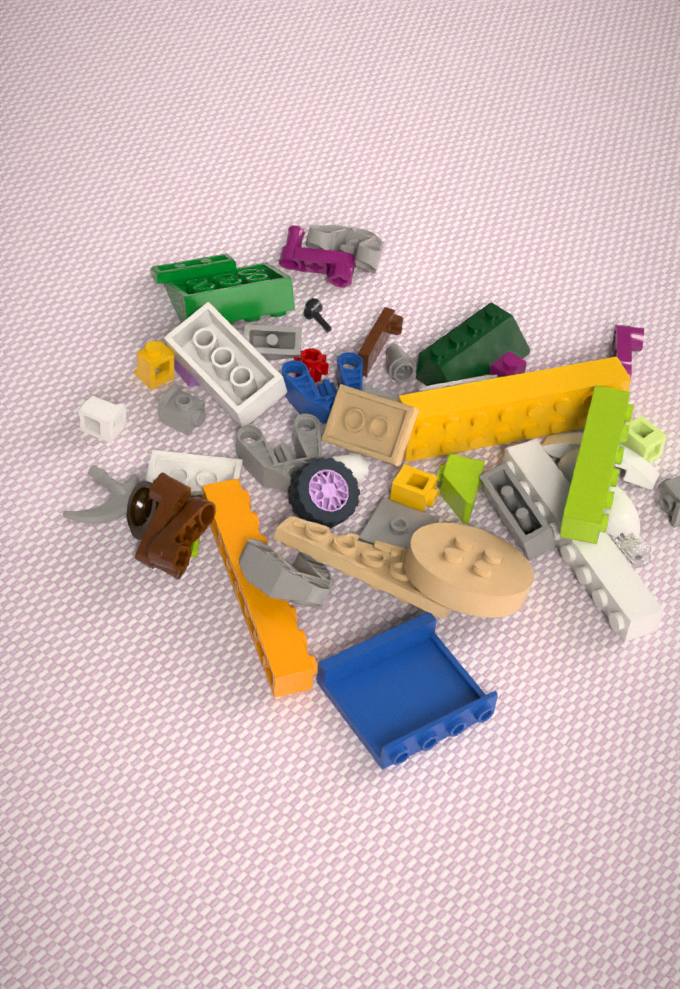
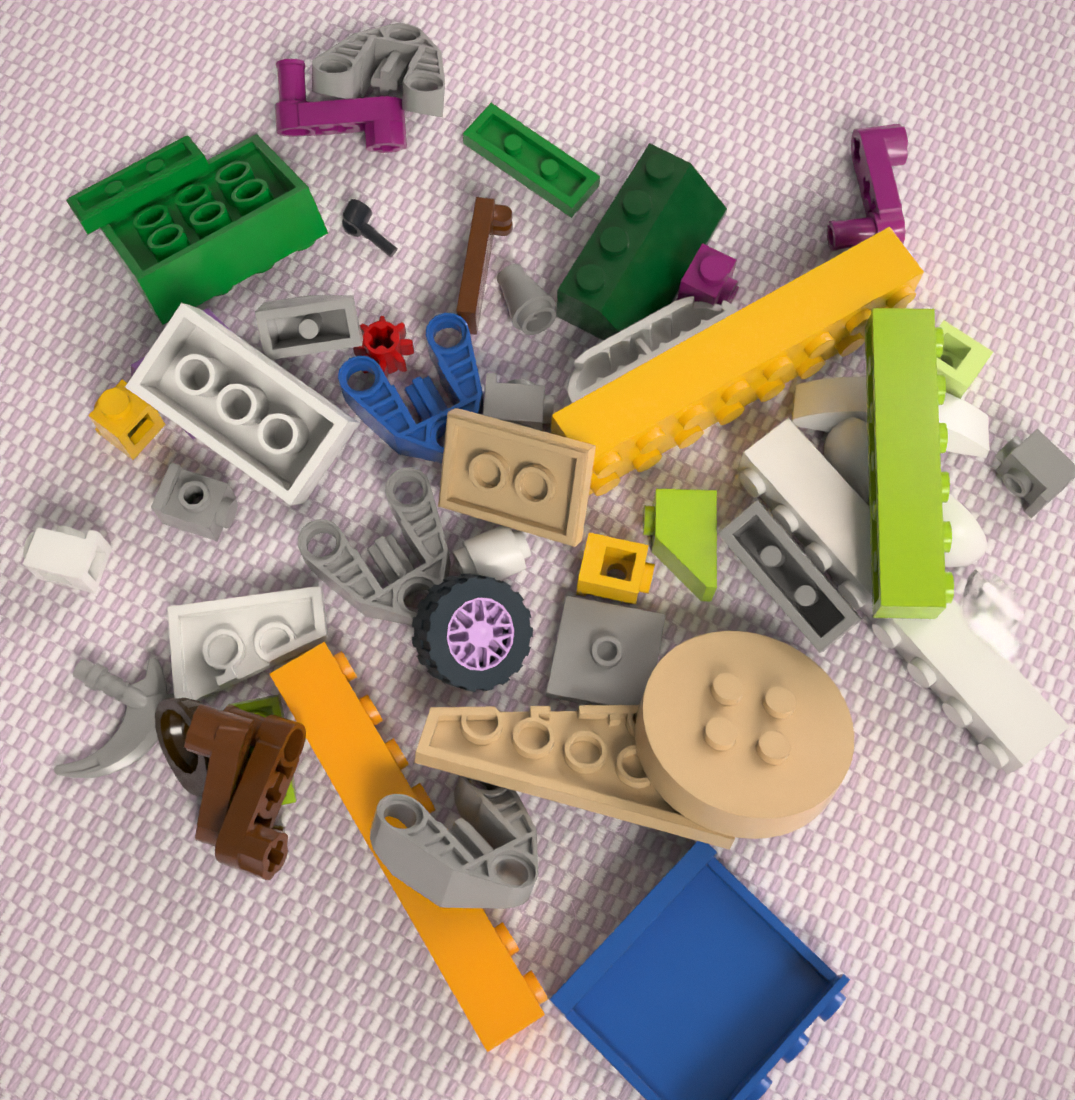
camera: 10 degrees left, 25 degrees up
(421, 303) = (531, 159): none -> green plate

